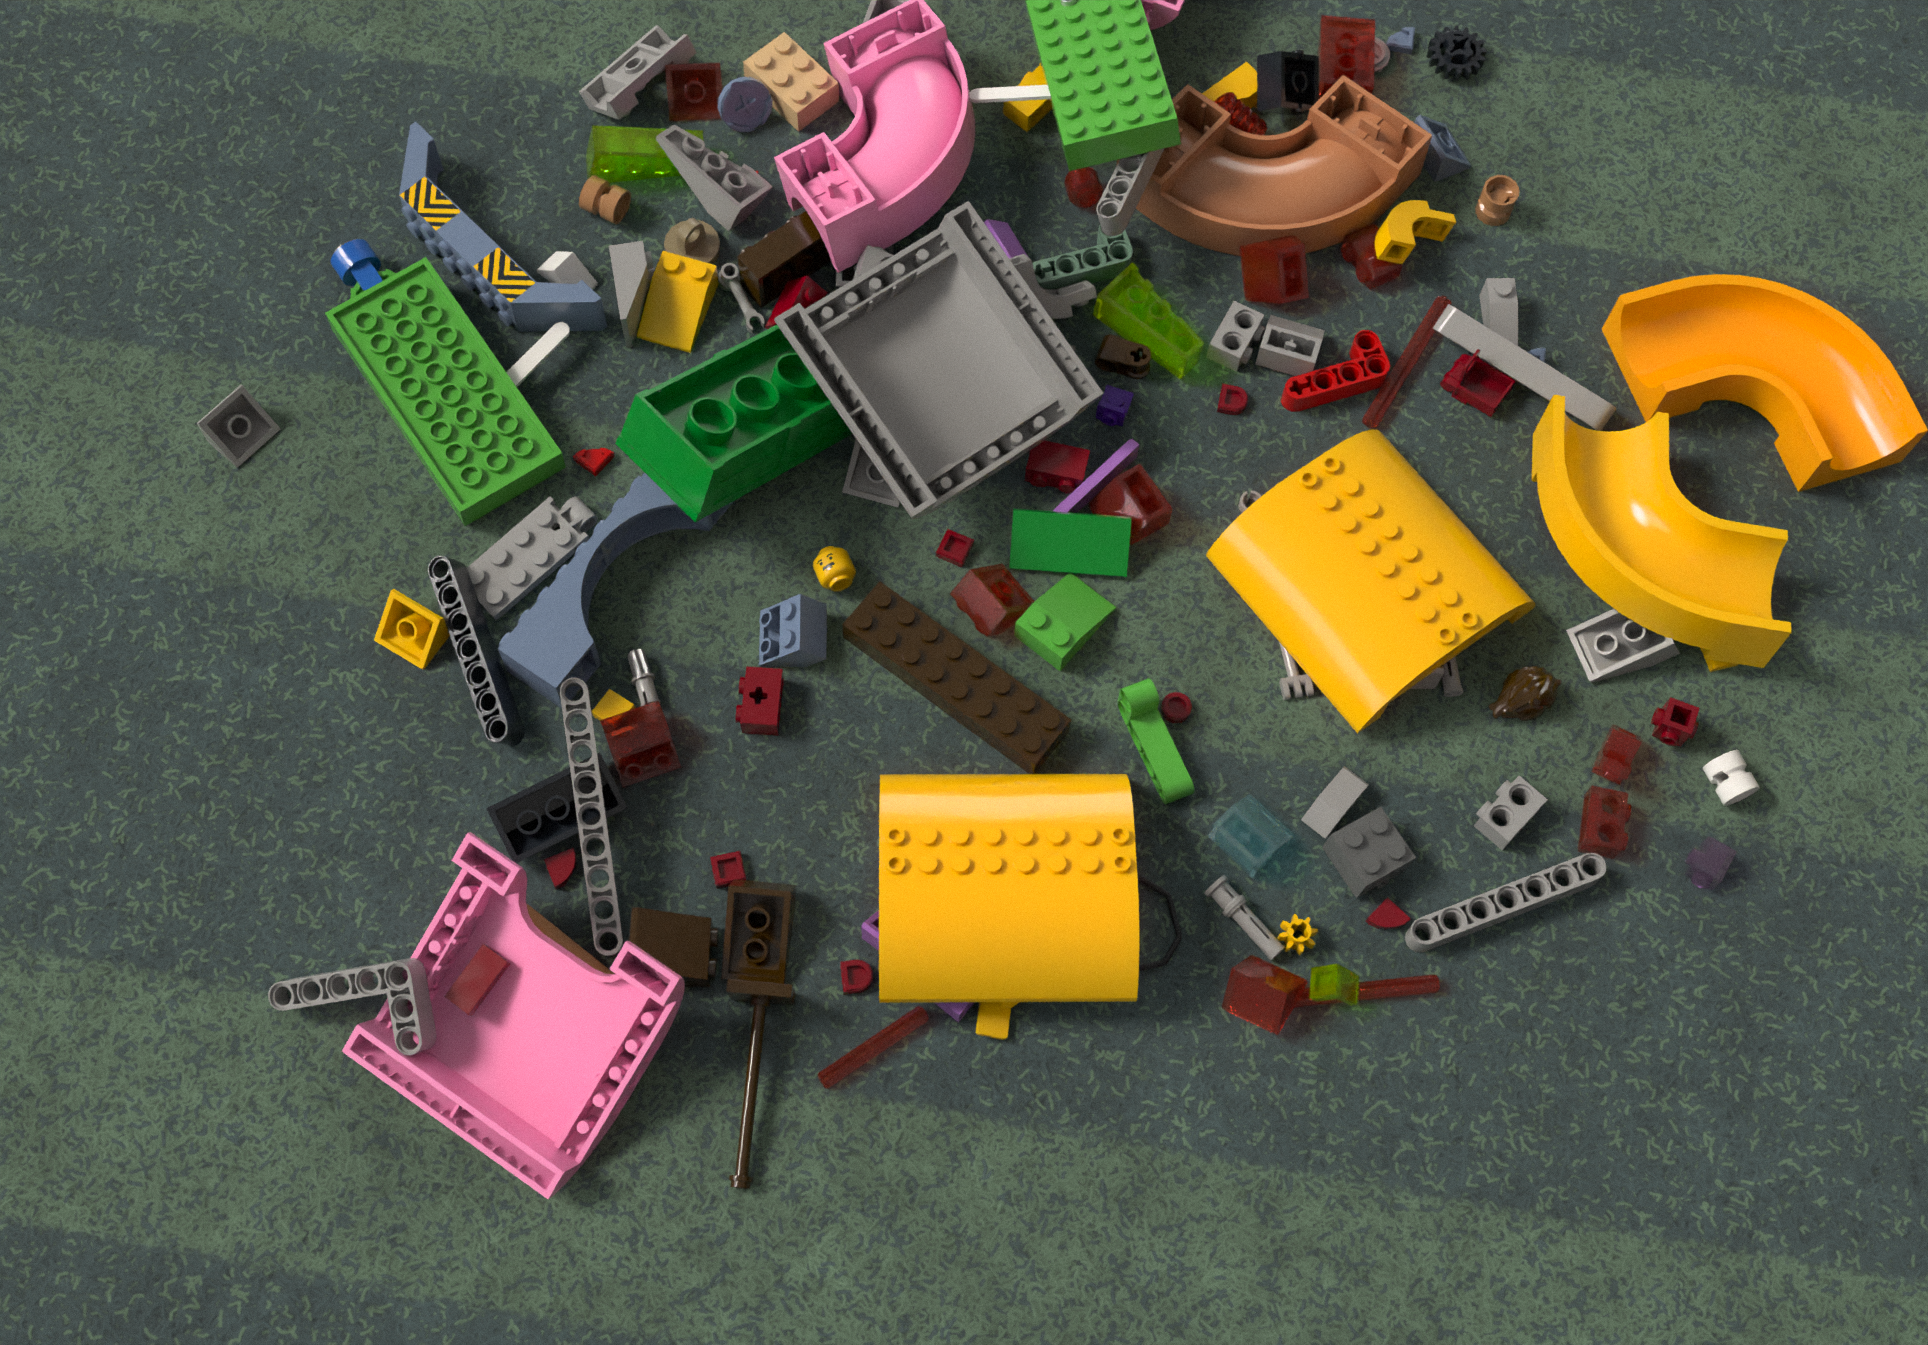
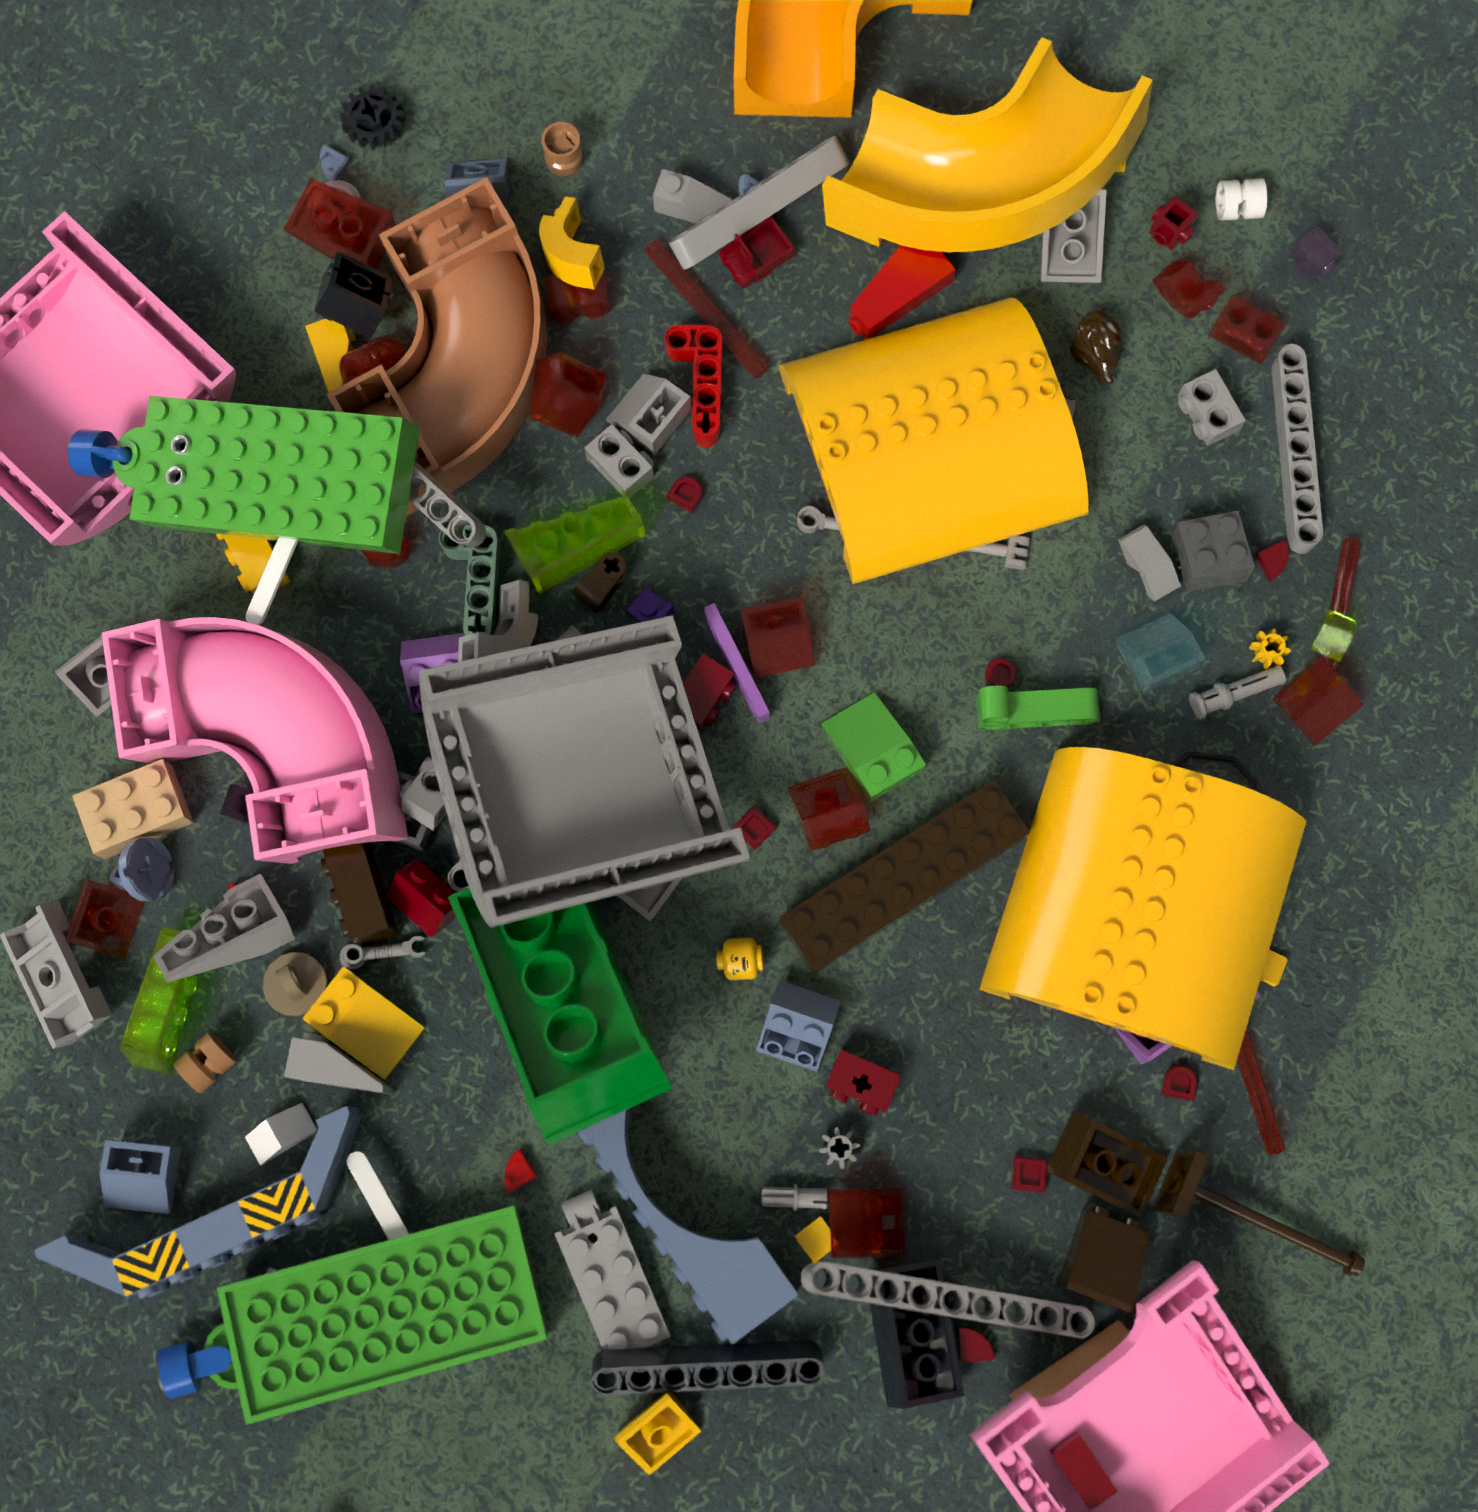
camera: 65 degrees left, 10 degrees up
(499, 184) = (139, 1176): none -> sand blue slope
(695, 708) = (844, 1140): none -> light grey gear
(1070, 542) = (795, 711): green tile -> none
(1498, 507) = (898, 288): none -> red slope

